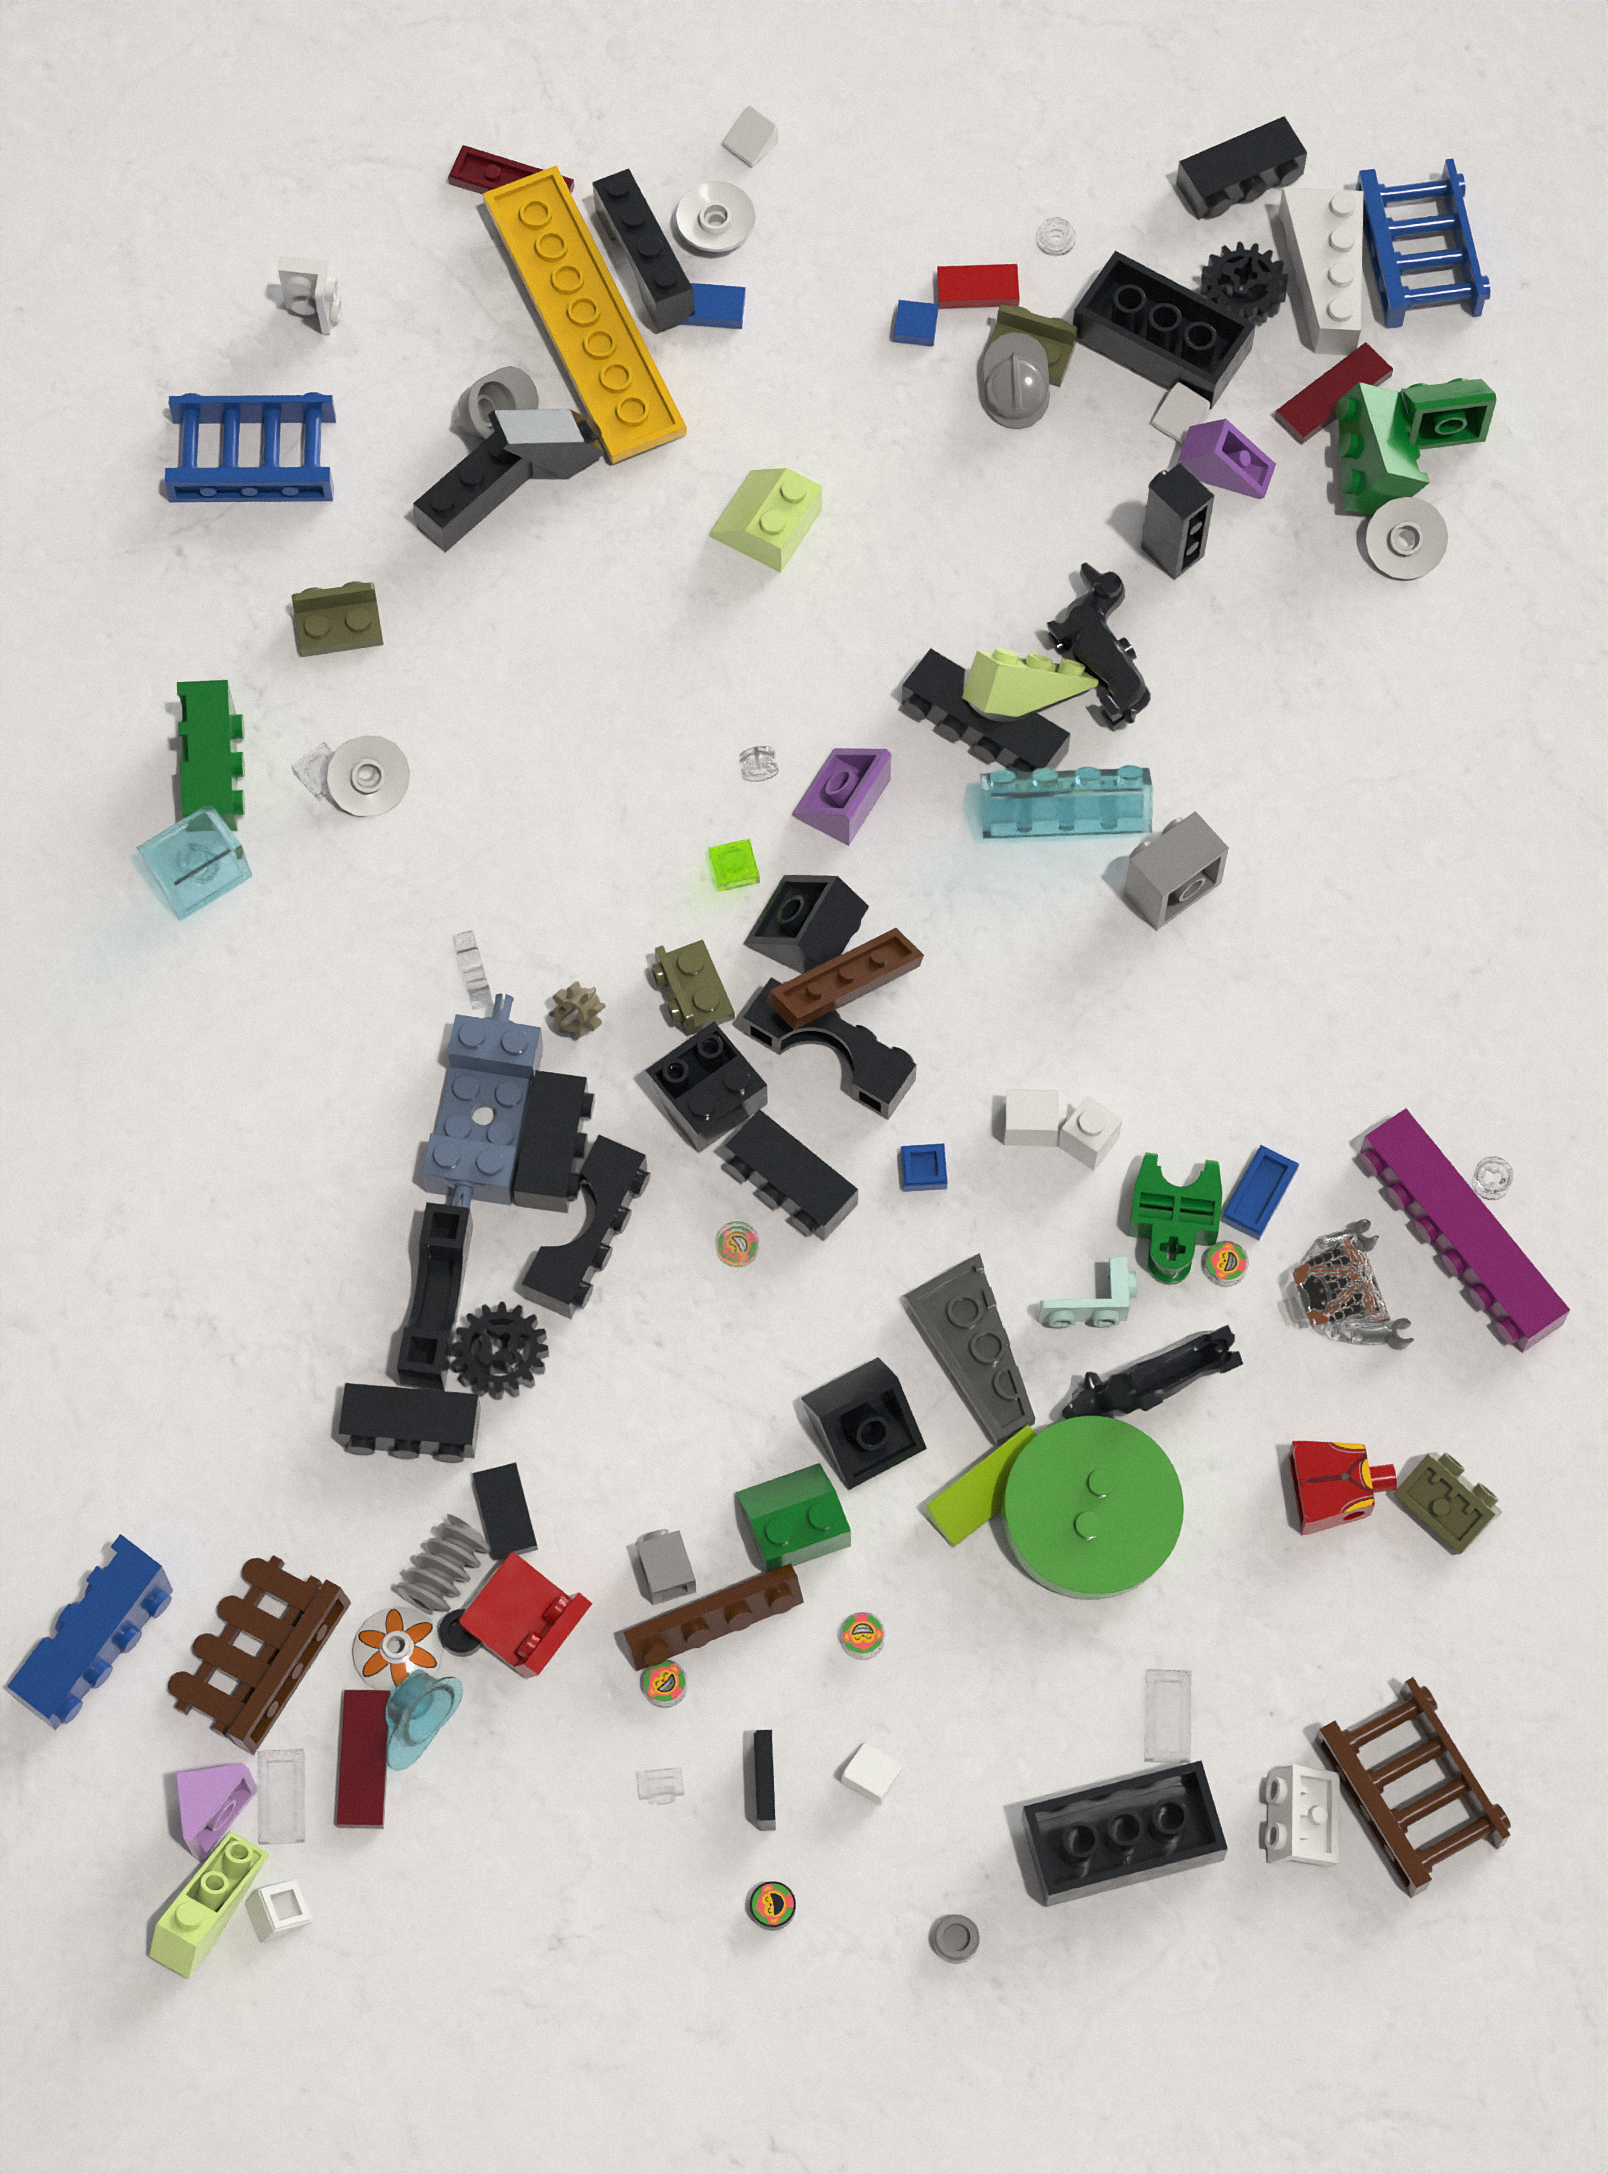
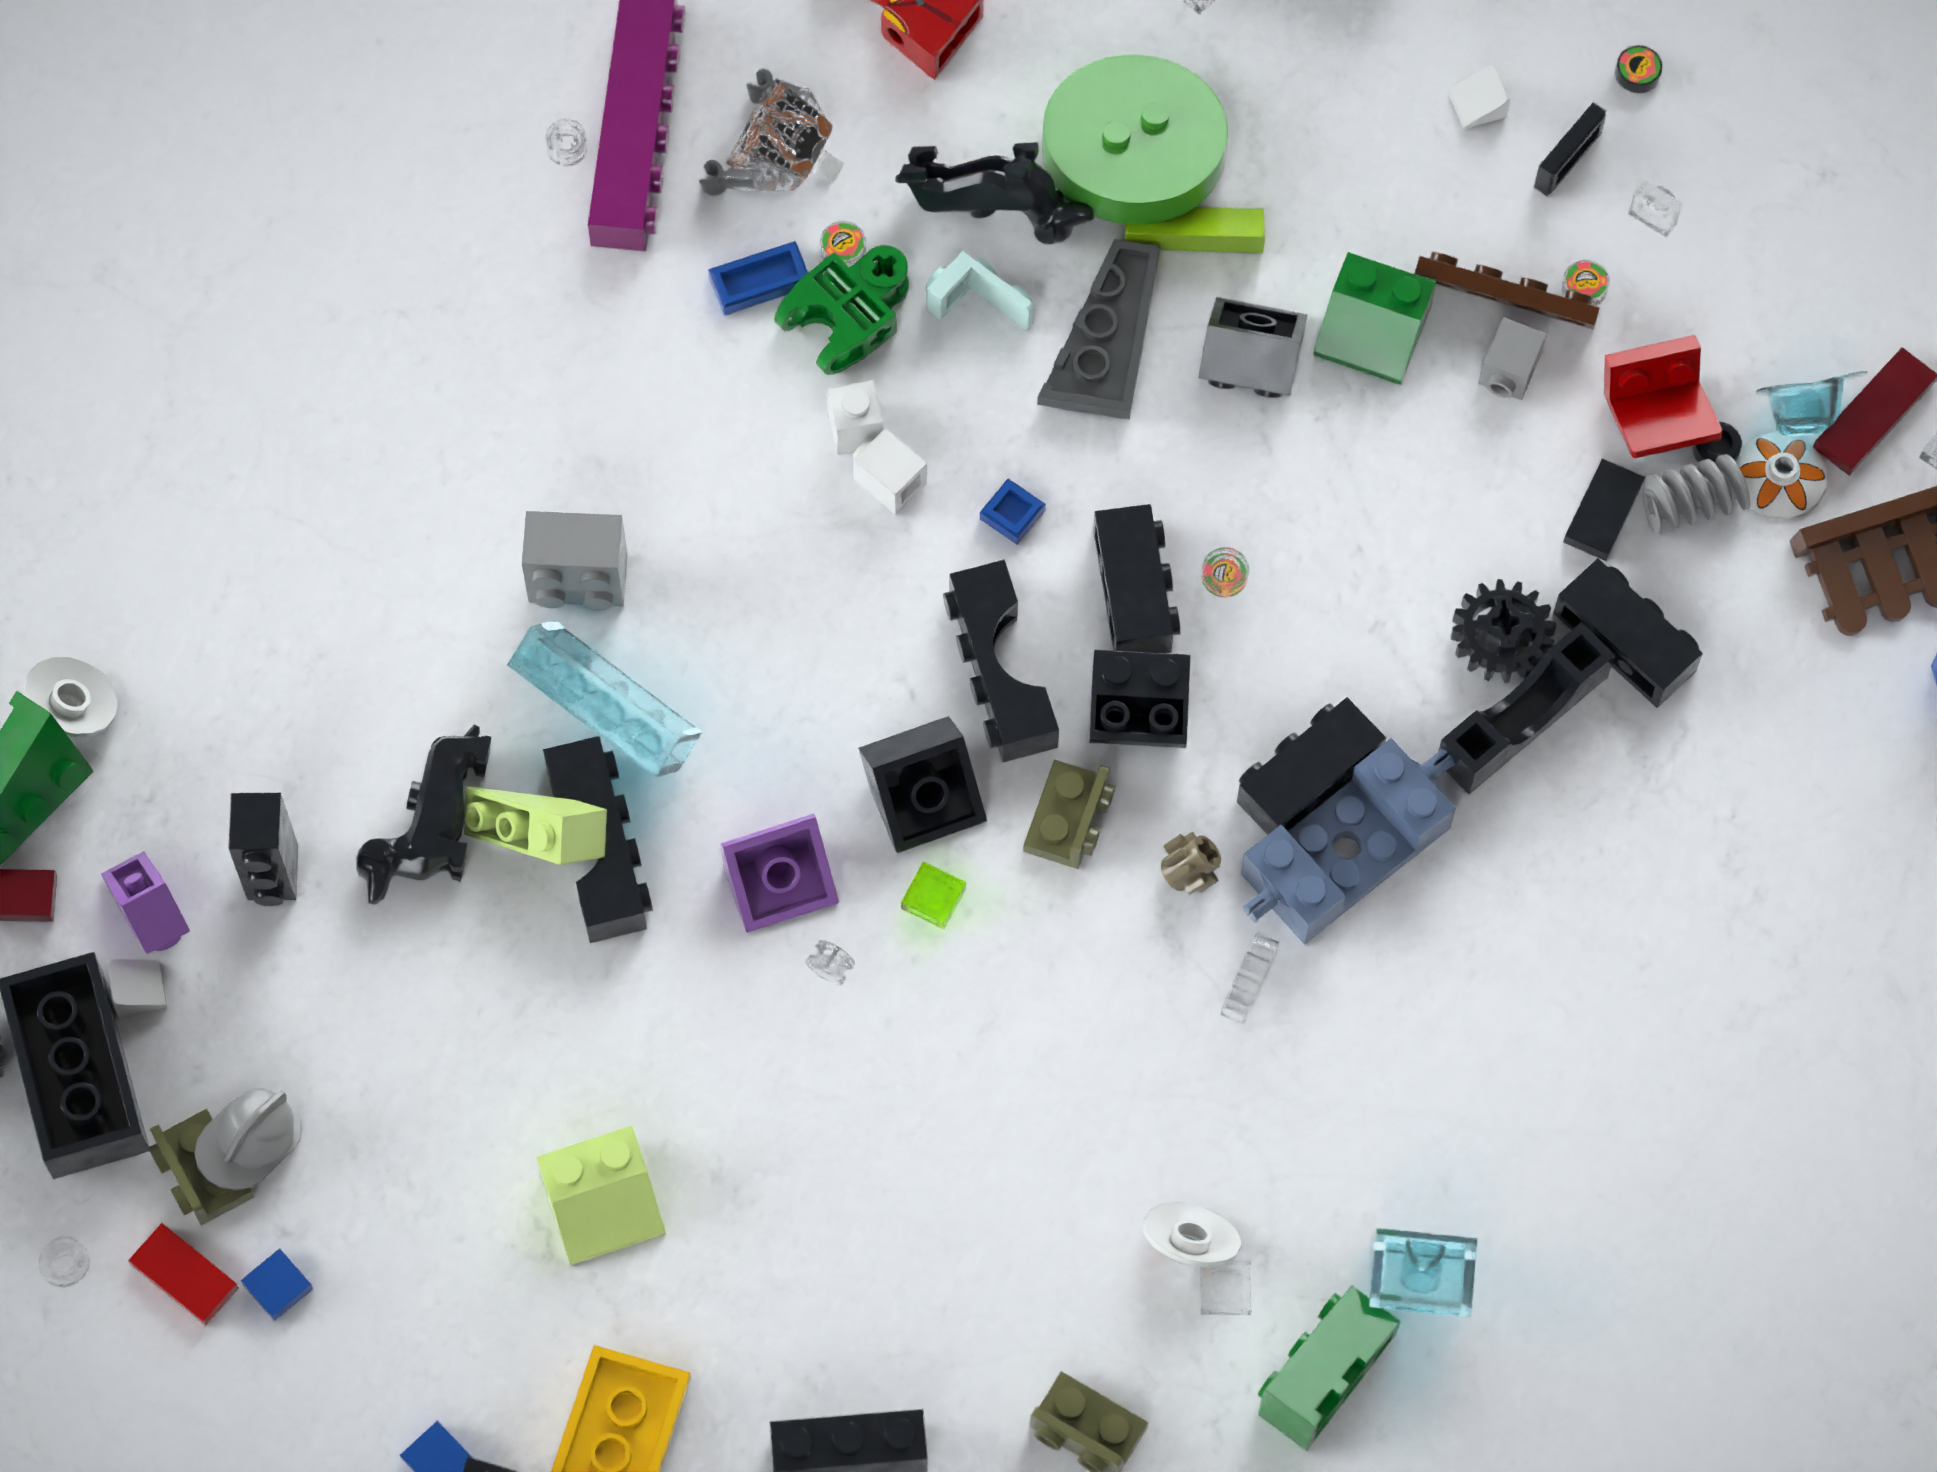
camera: 140 degrees left, 0 degrees up
(549, 438) = (743, 1414): black slope -> none
(563, 1273) = (1396, 650): black arch -> none
(844, 978) = (942, 691): reddish brown plate -> none
(862, 1635) = (1396, 199): tile -> none

